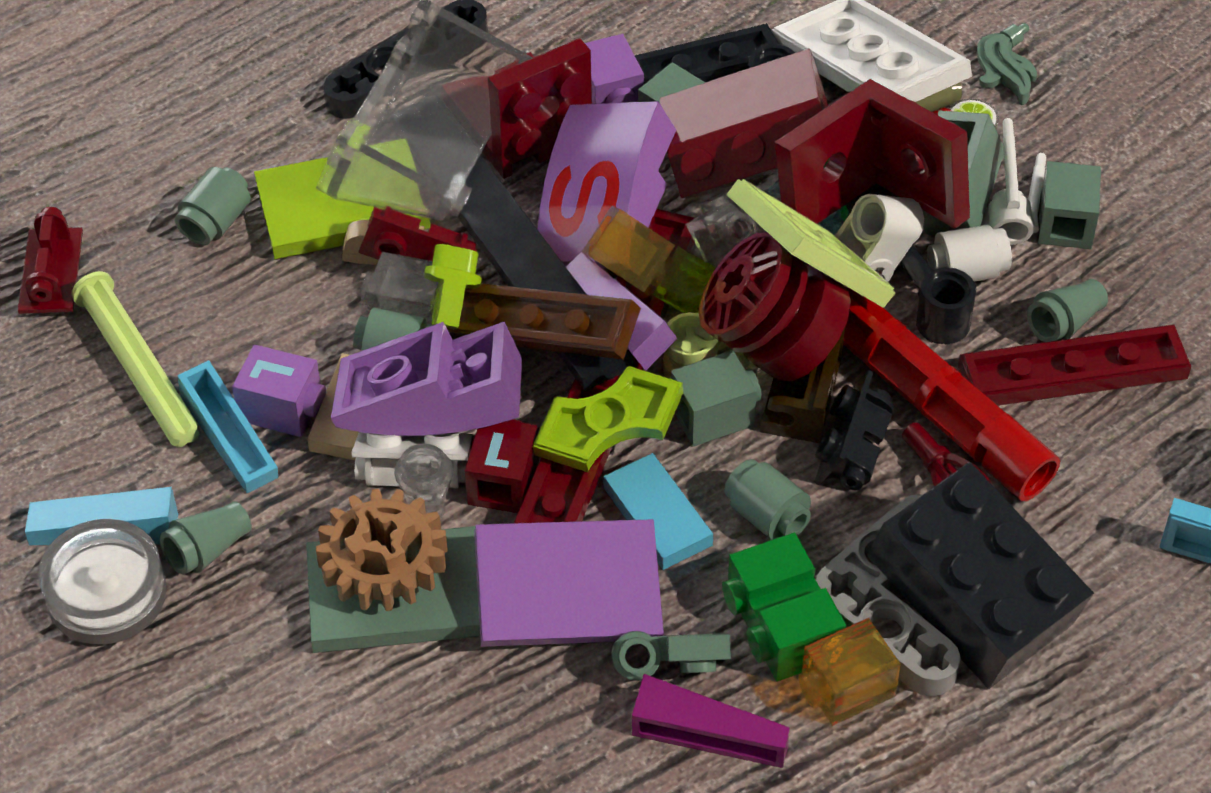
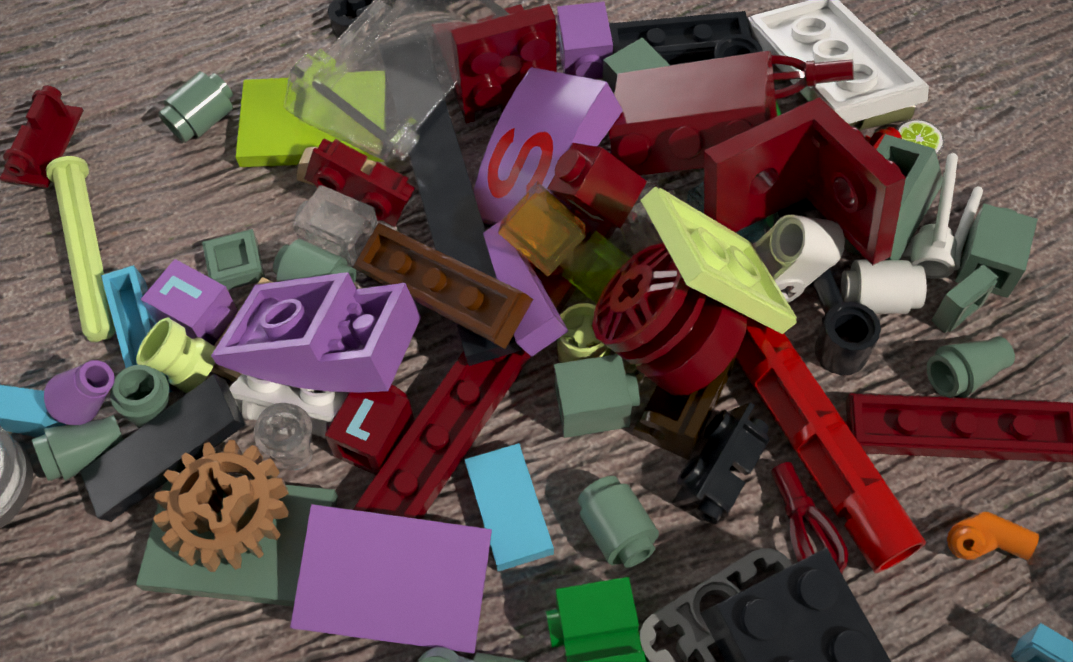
camera: 15 degrees right, 10 degrees up
(203, 476) = (78, 393): none -> medium lavender cone
(267, 476) = (140, 394): none -> sand green cone
(280, 429) = (176, 355): none -> yellowish green wheel
(292, 520) = (140, 461): none -> black tile
(305, 338) = (234, 259): none -> sand green tile
(454, 271) = (373, 220): lime piece -> none
(584, 428) = (504, 399): lime tile -> none
(671, 199) = (596, 184): none -> dark red brick
(853, 66) = (811, 73): none -> dark red piece
(1004, 65) = (962, 89): sand green piece -> none
(1049, 252) = (964, 299): none -> sand green tile
(1117, 447) = (988, 532): none -> orange arm

